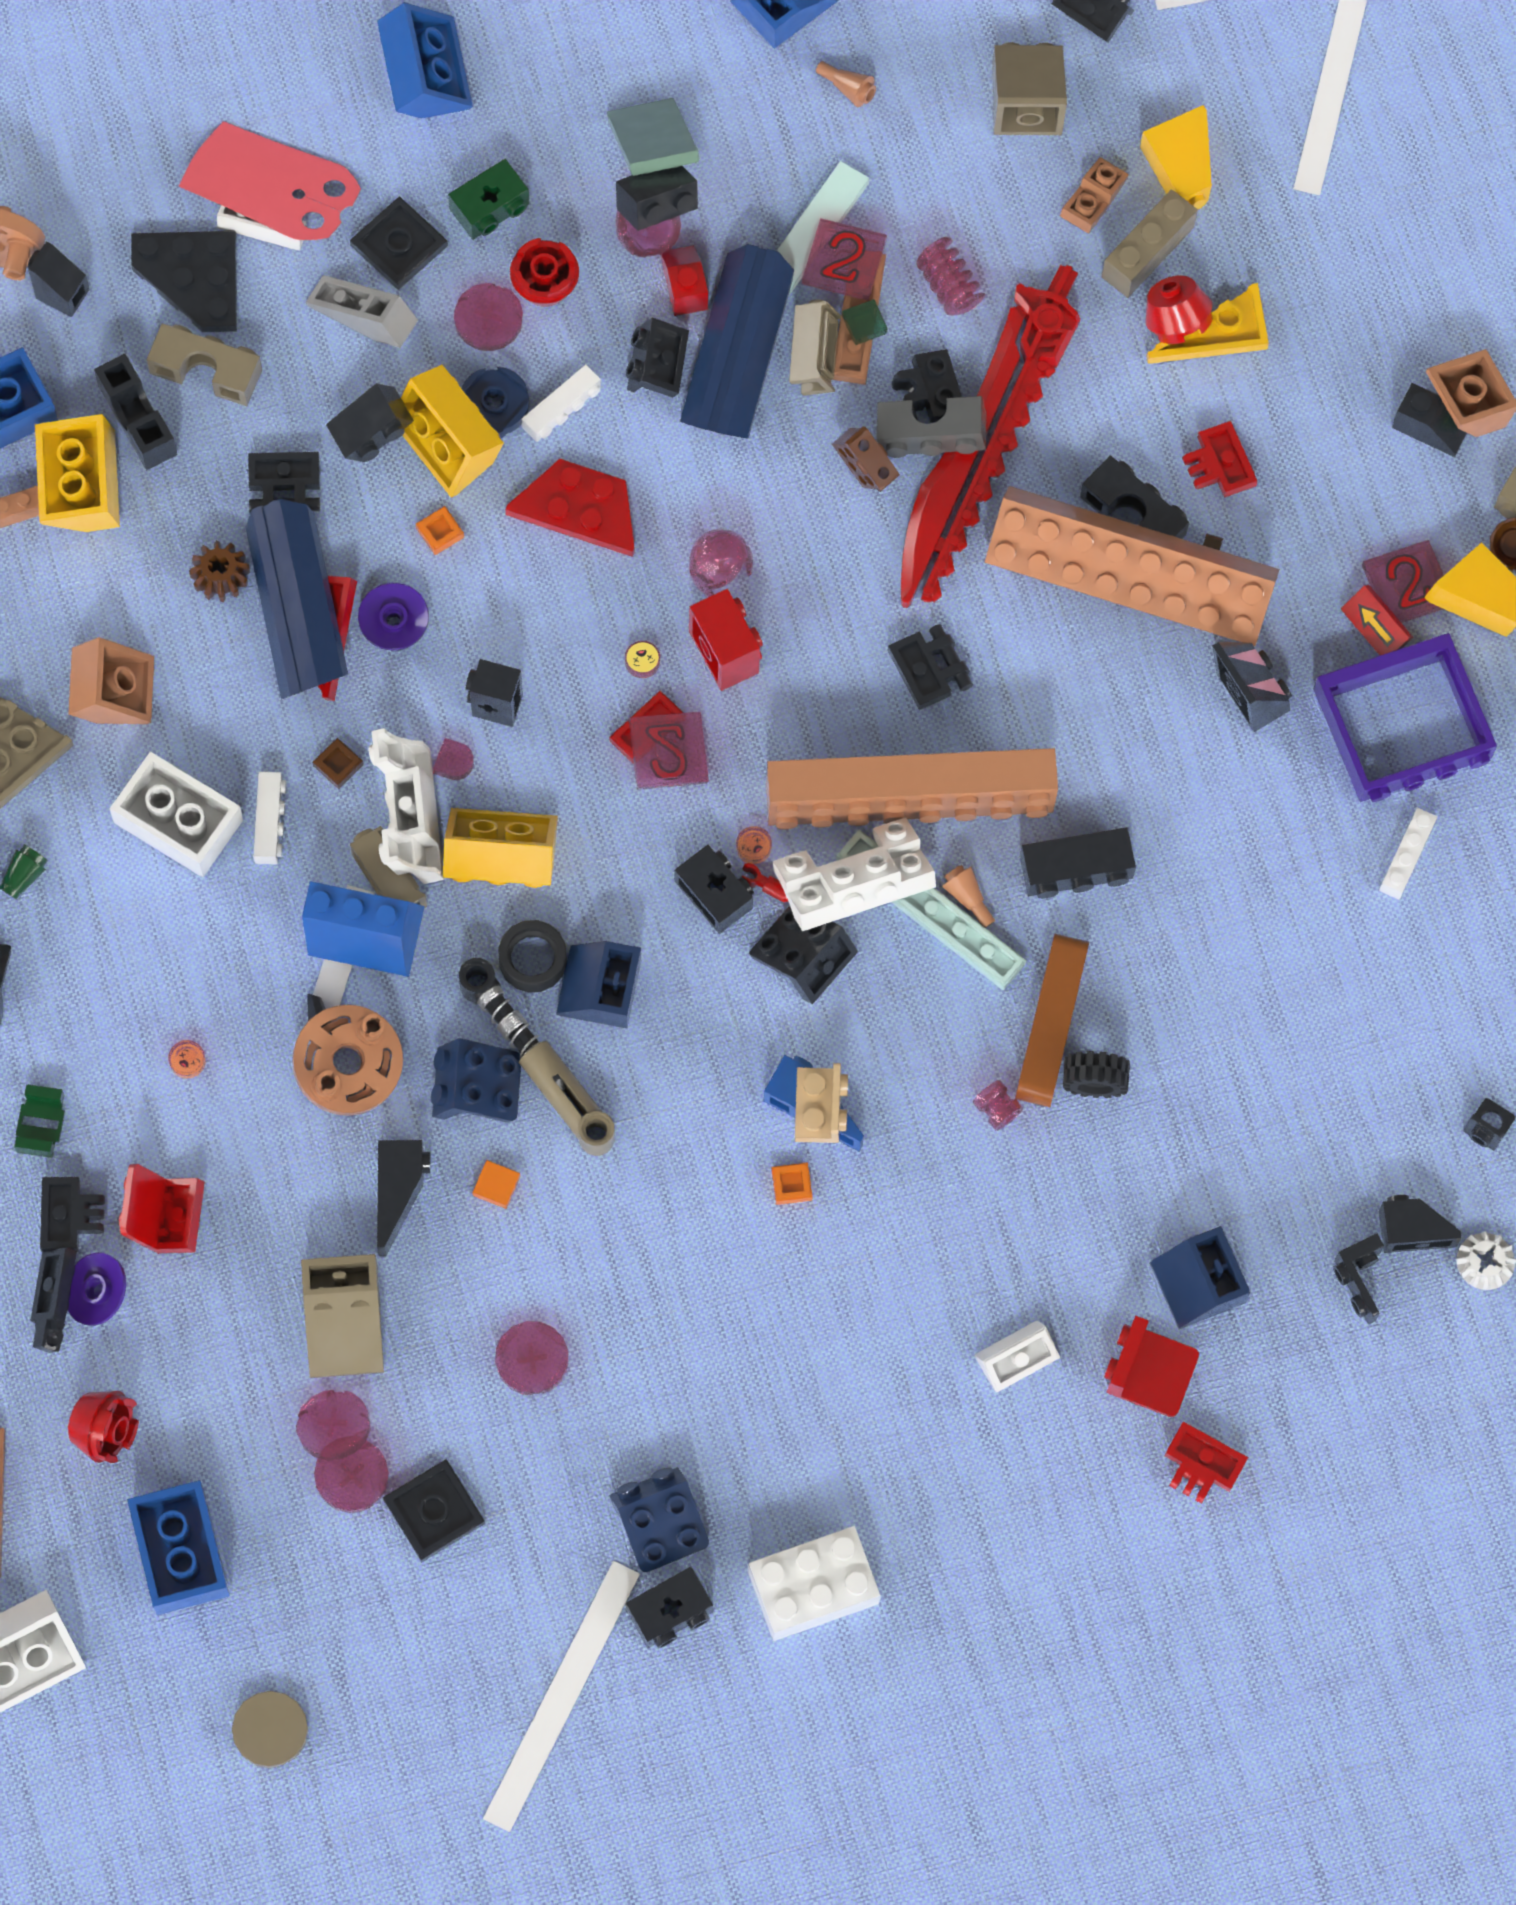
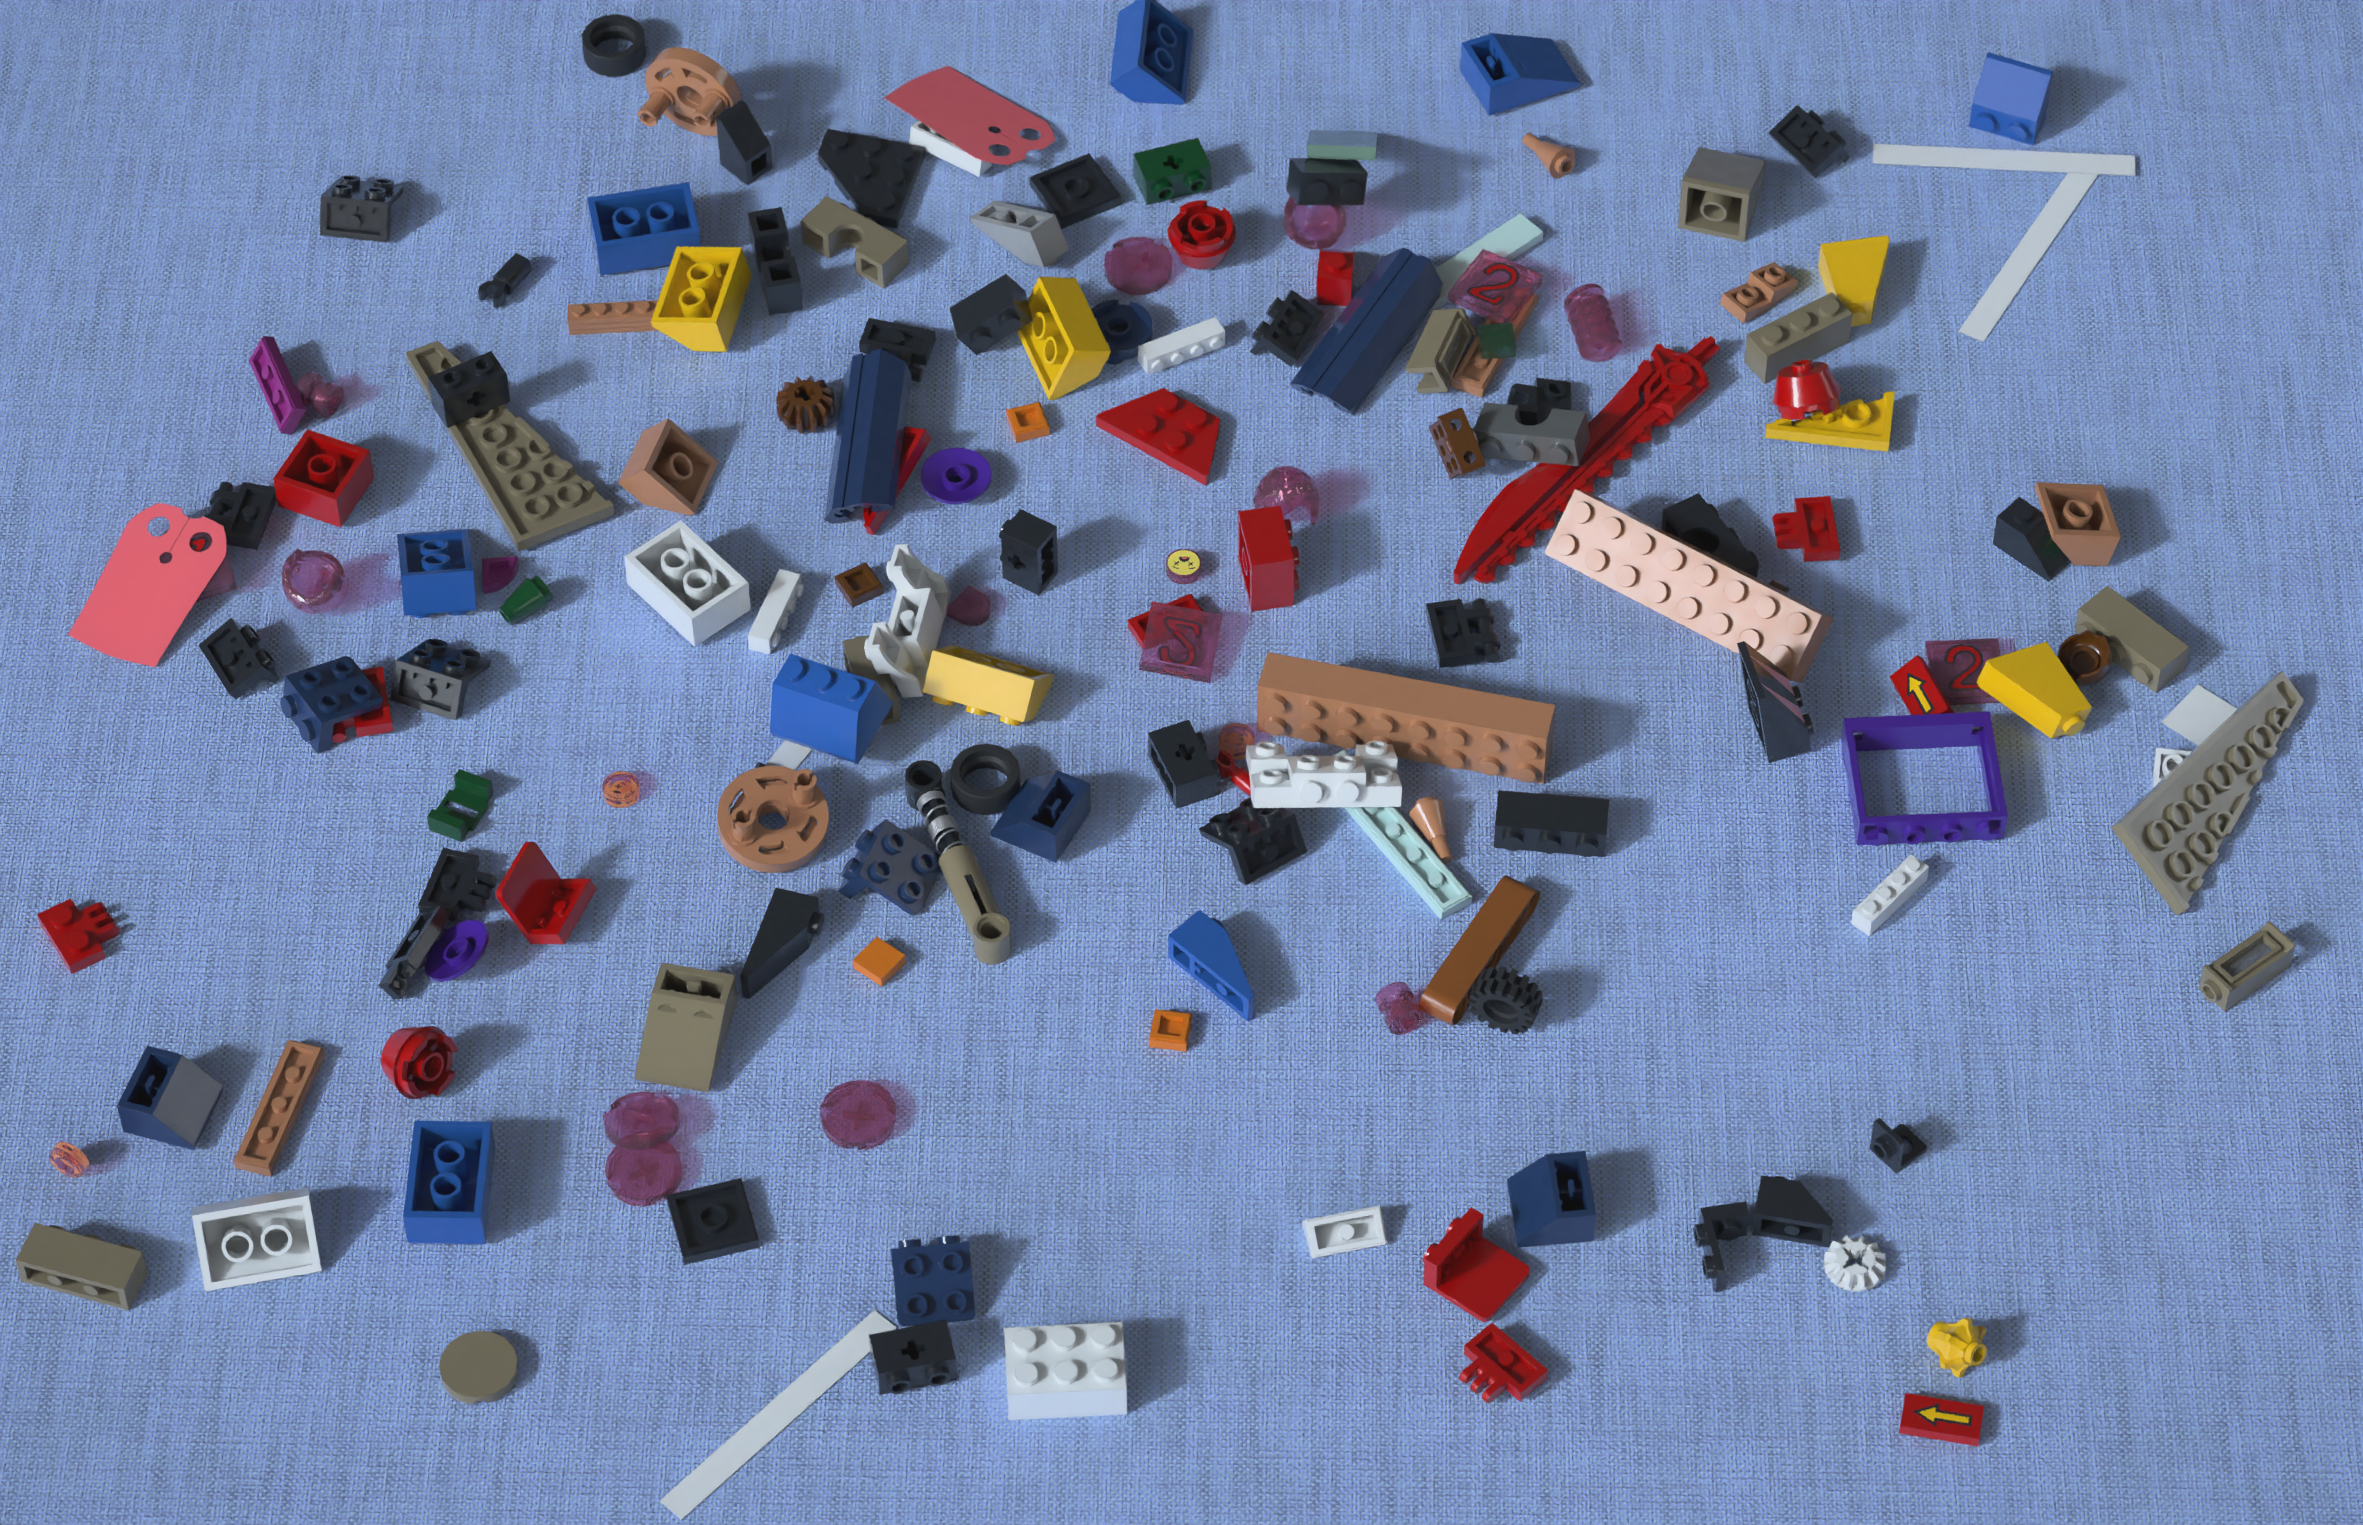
camera: 20 degrees right, 20 degrees down
(818, 1104) = (1219, 955): tan bracket -> none

